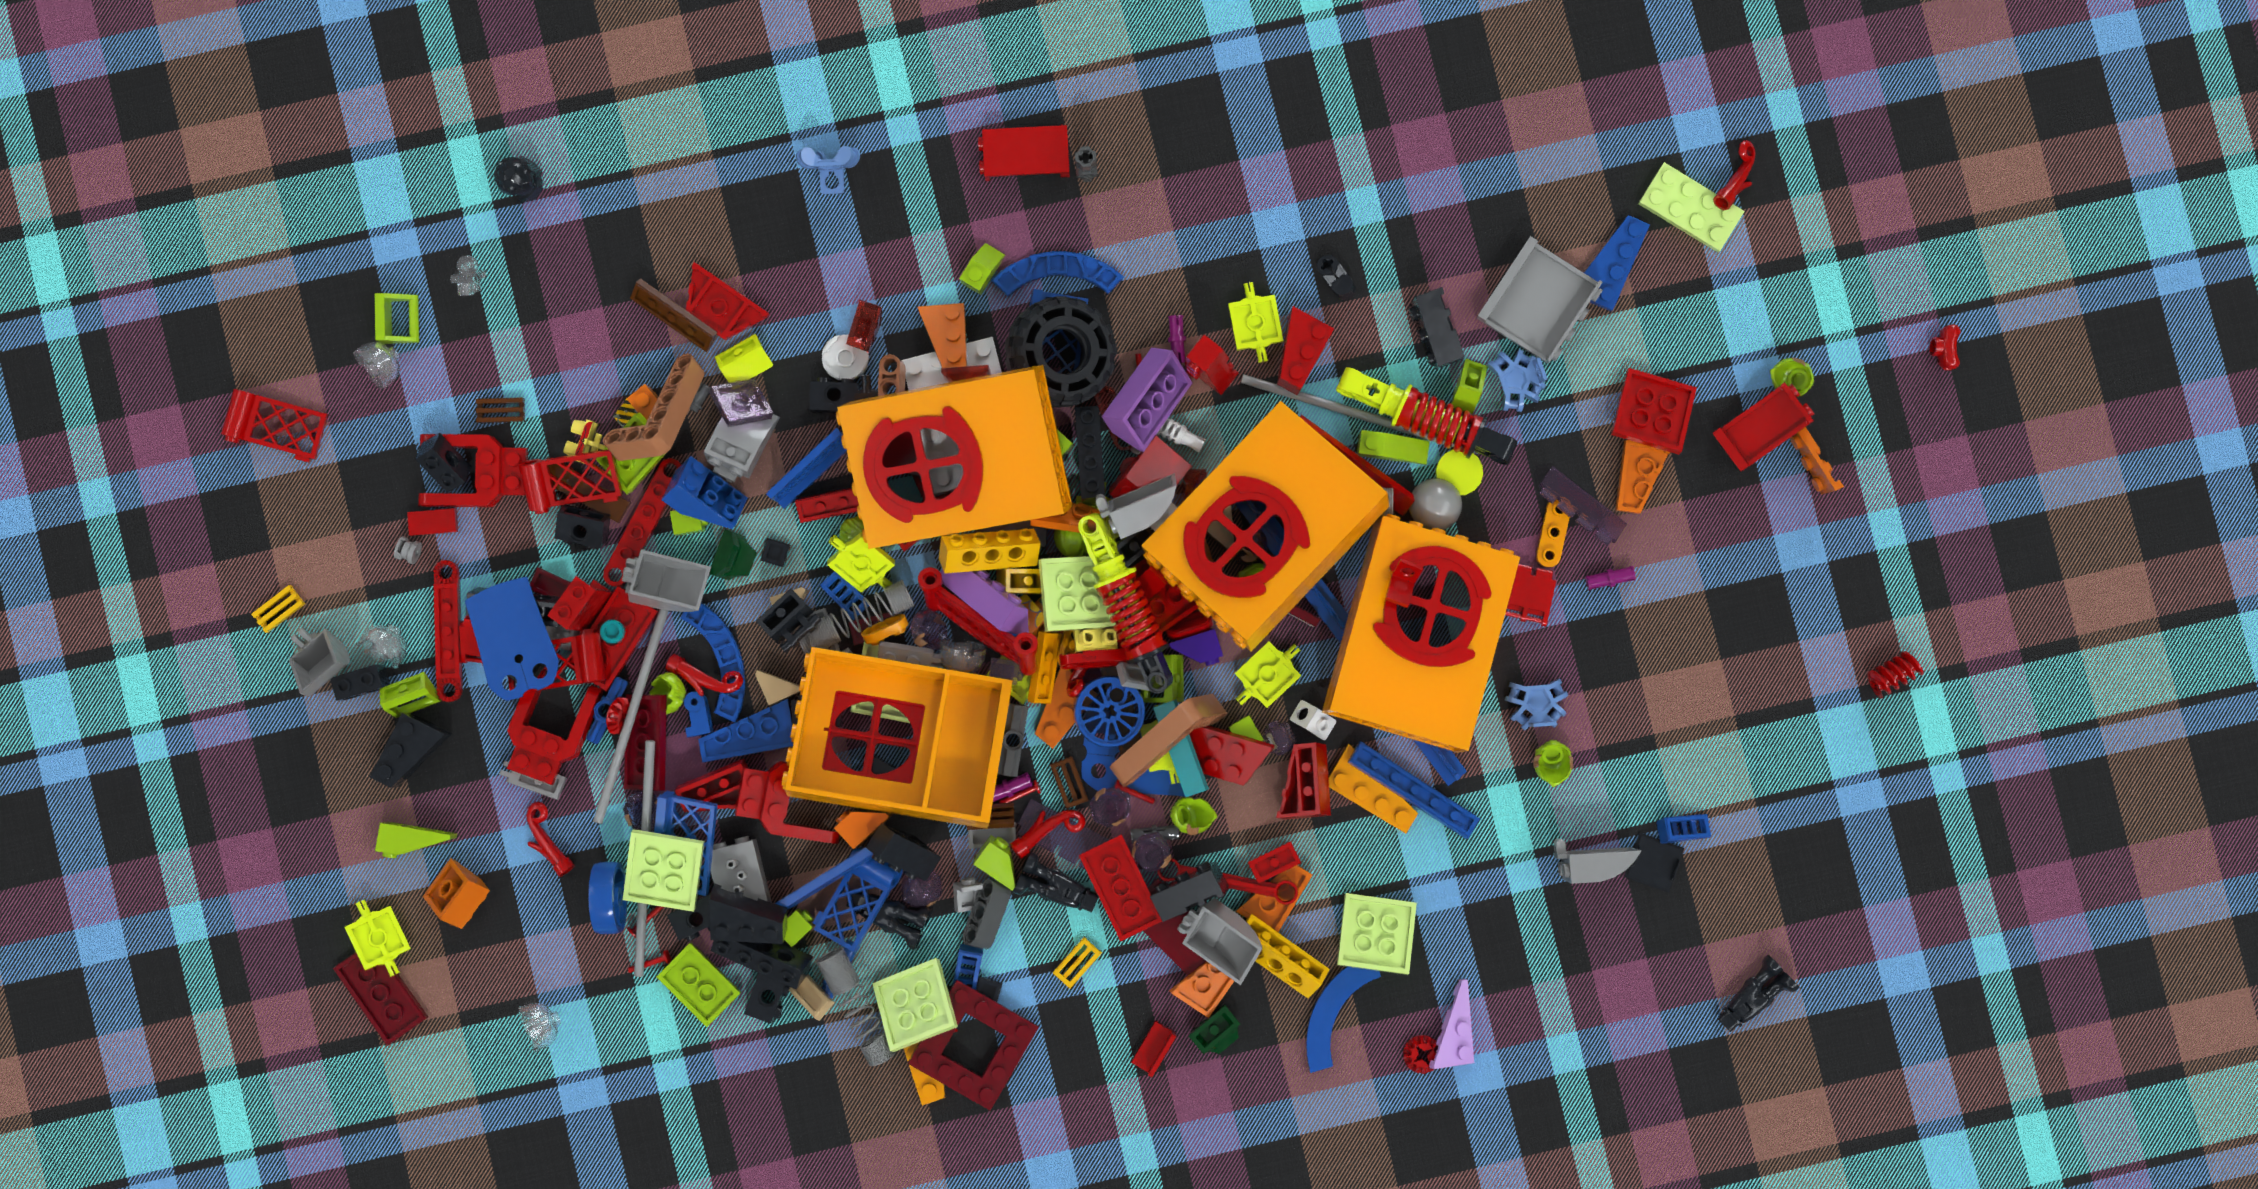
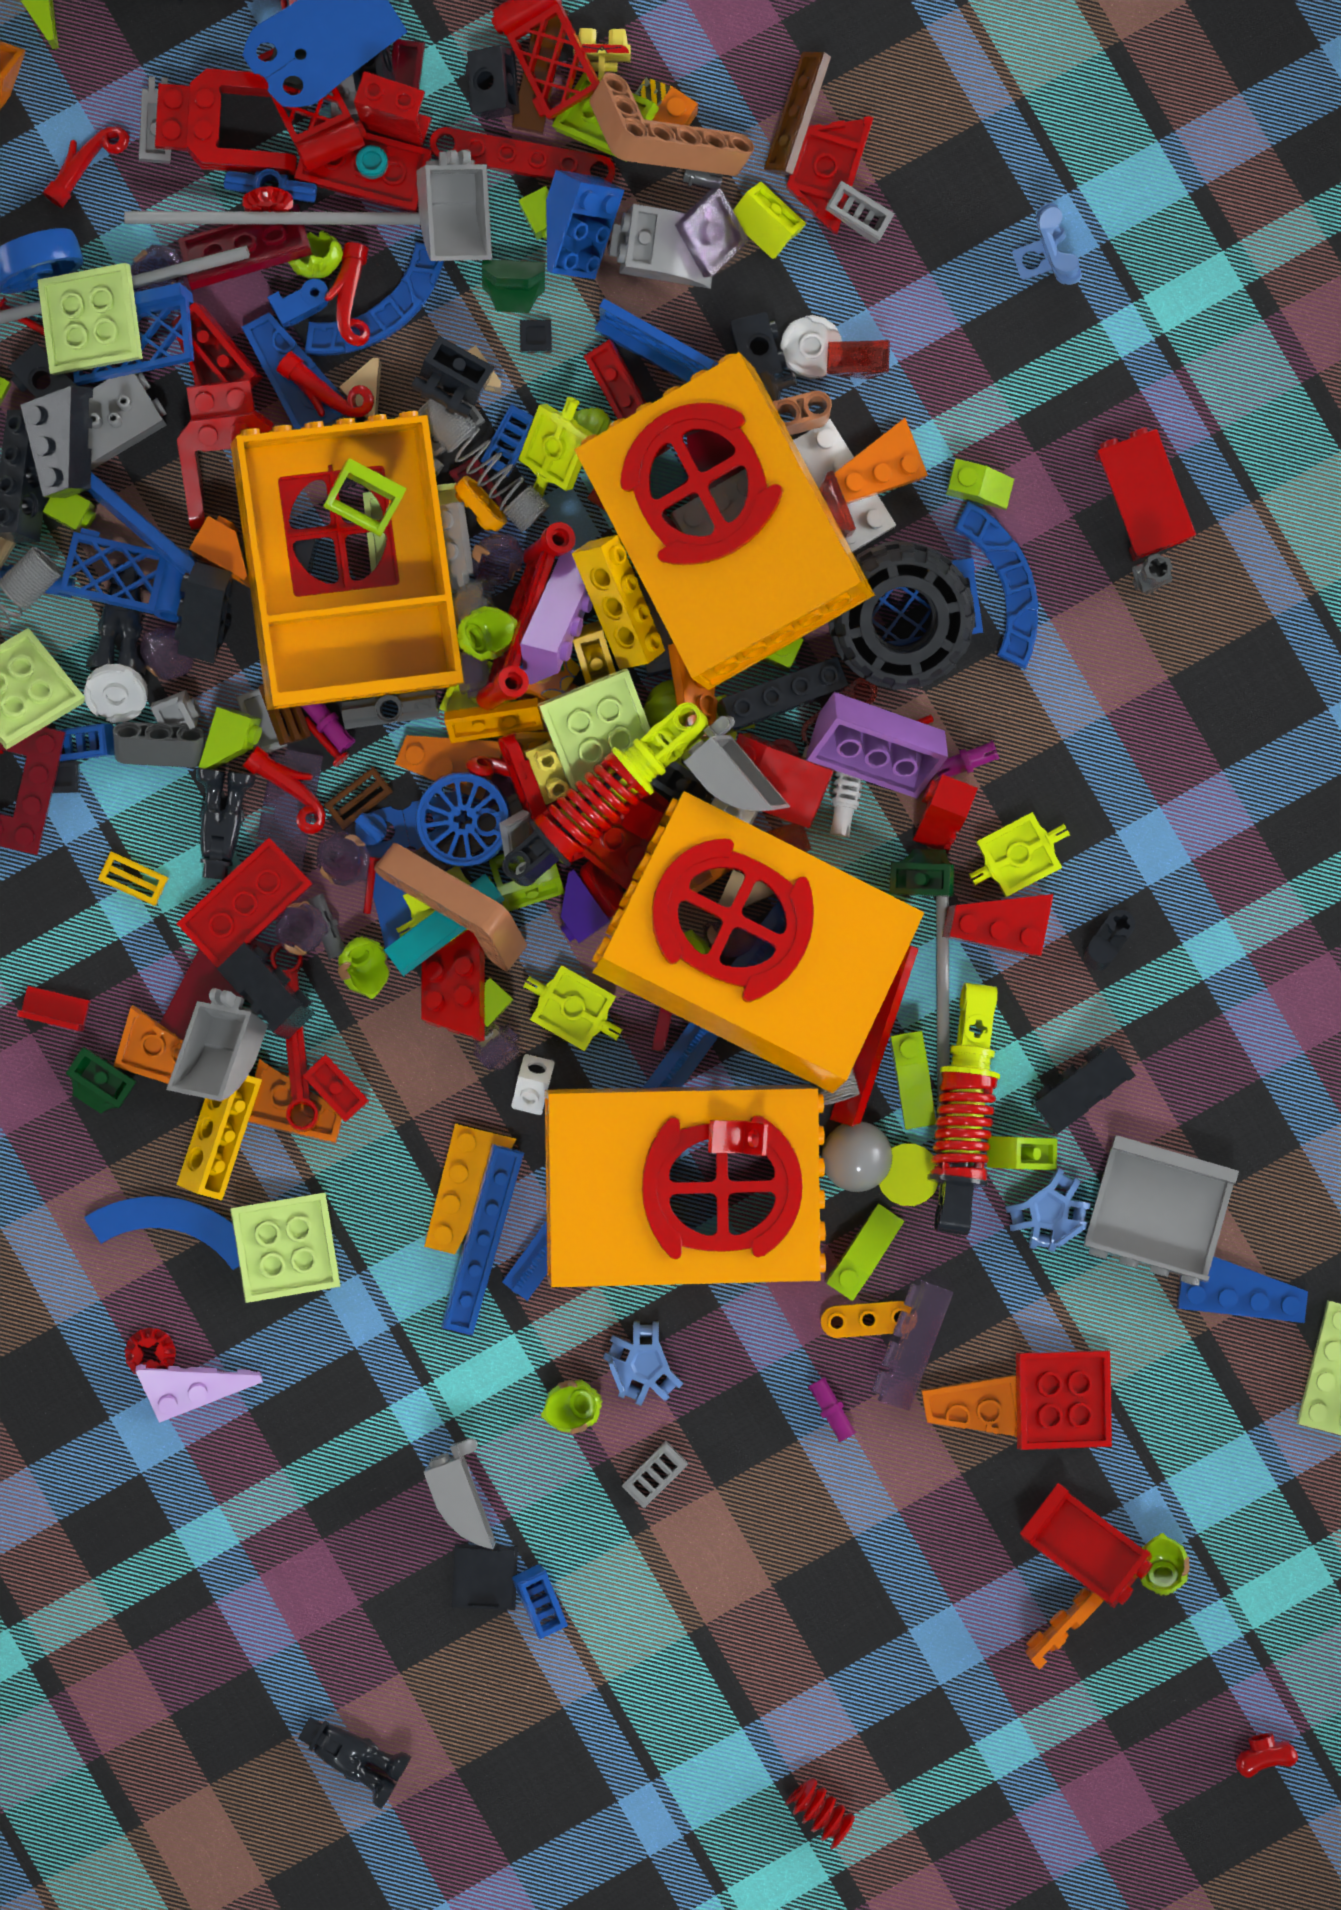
camera: 70 degrees right, 0 degrees up
(766, 276) = (874, 208): none -> light grey slope
(766, 721) = (318, 391): none -> red plant
(848, 700) = (372, 481): none -> lime tile
(939, 934) = (115, 692): none -> white tile
(982, 652) = (486, 633): none -> lime hair
(1094, 780) = (370, 828): none -> blue plate
(1248, 394) = (923, 874): none -> dark green slope
(1307, 783) = (449, 1099): red wedge -> none
(1506, 520) = (864, 1252): none -> lime slope
(1531, 594) = (779, 1311): red plate -> none
(1617, 698) = (673, 1455): none -> light grey slope

